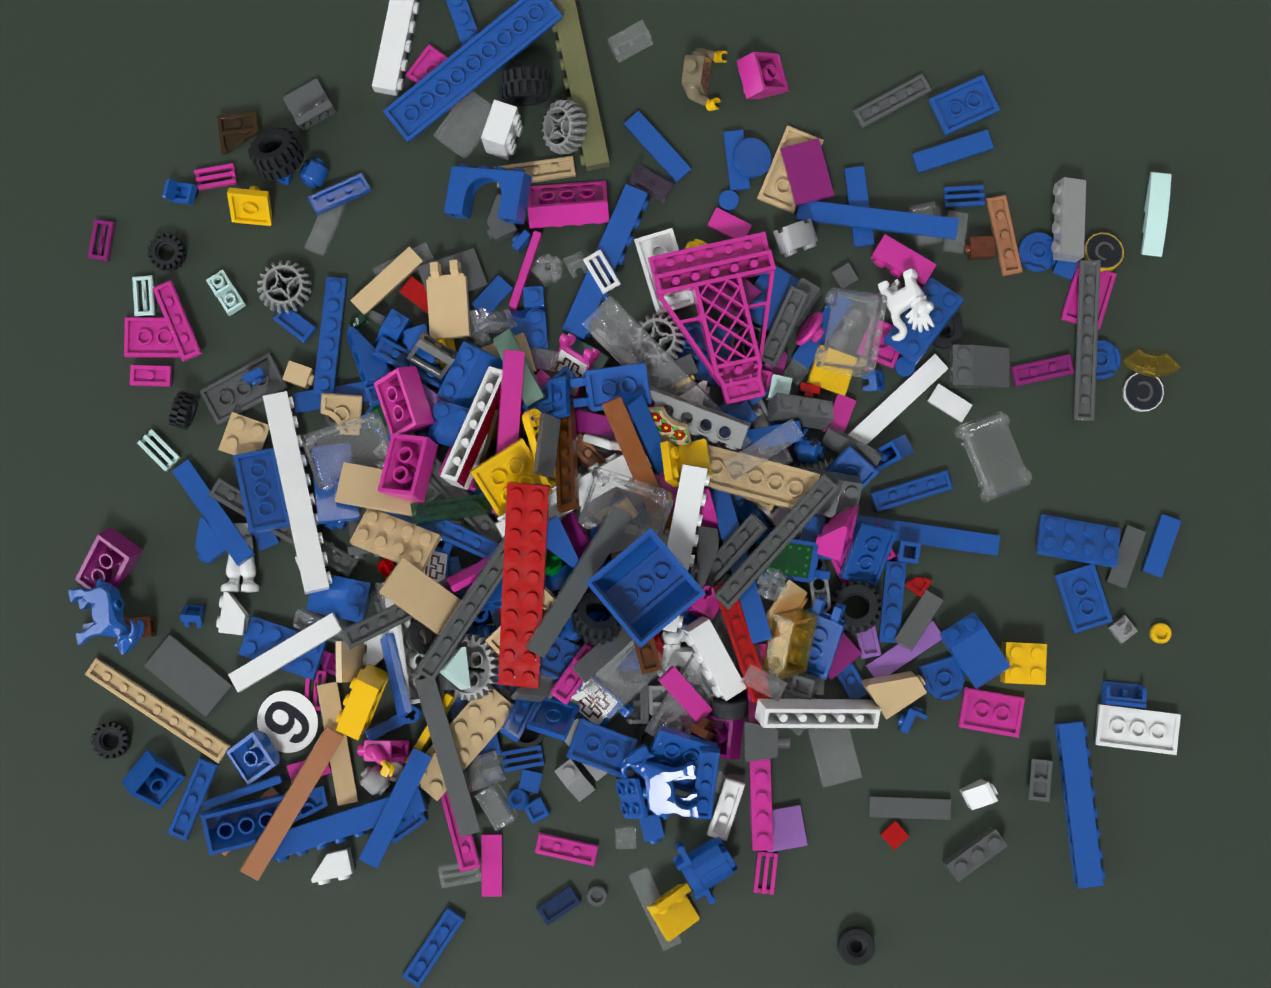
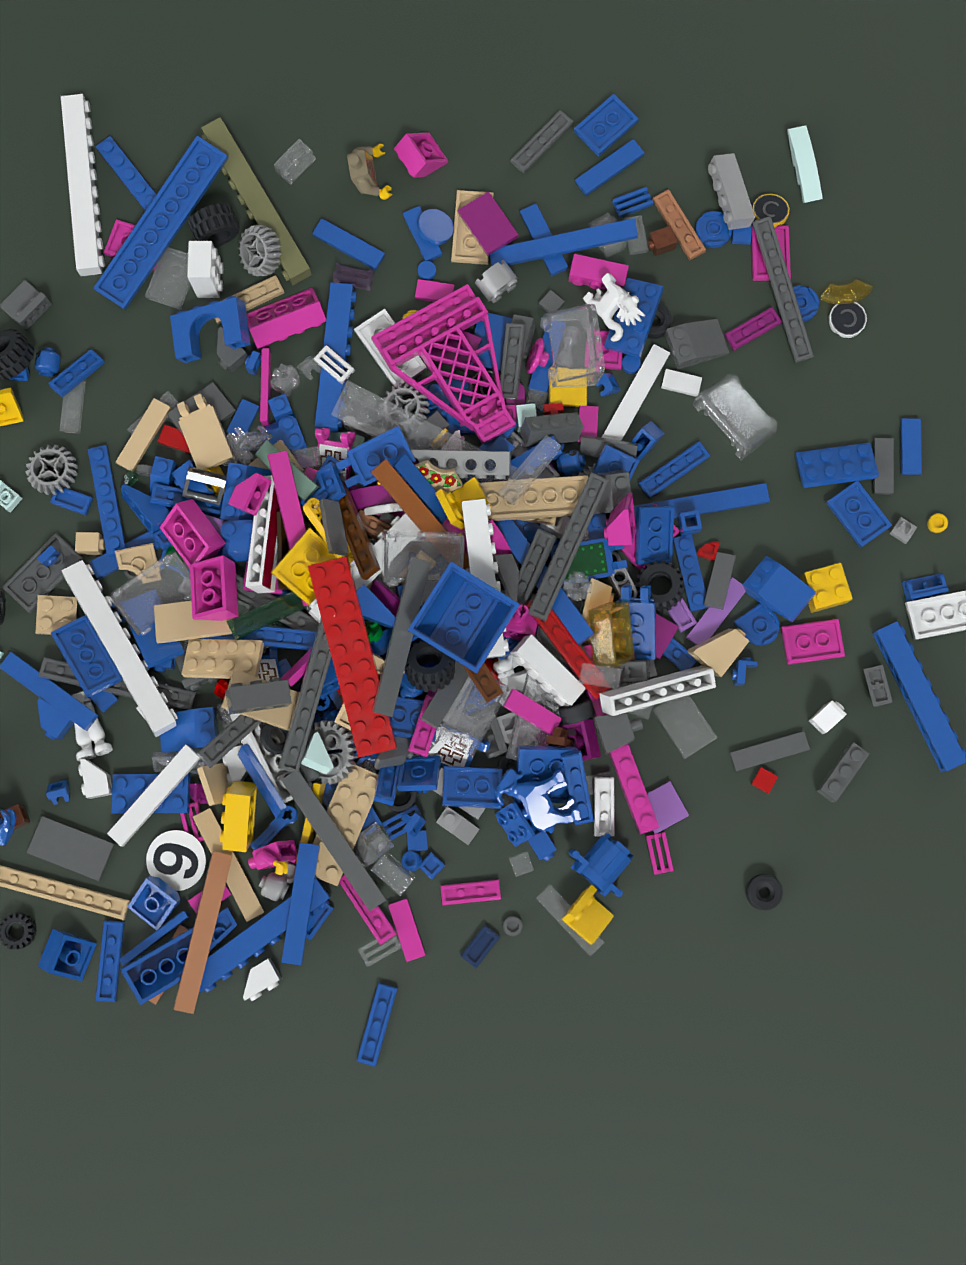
camera: 20 degrees left, 5 degrees down
(417, 593) = (258, 696): none -> dark grey brick
(473, 383) = (250, 494): none -> dark pink slope
(532, 764) = (413, 823): none -> blue tile

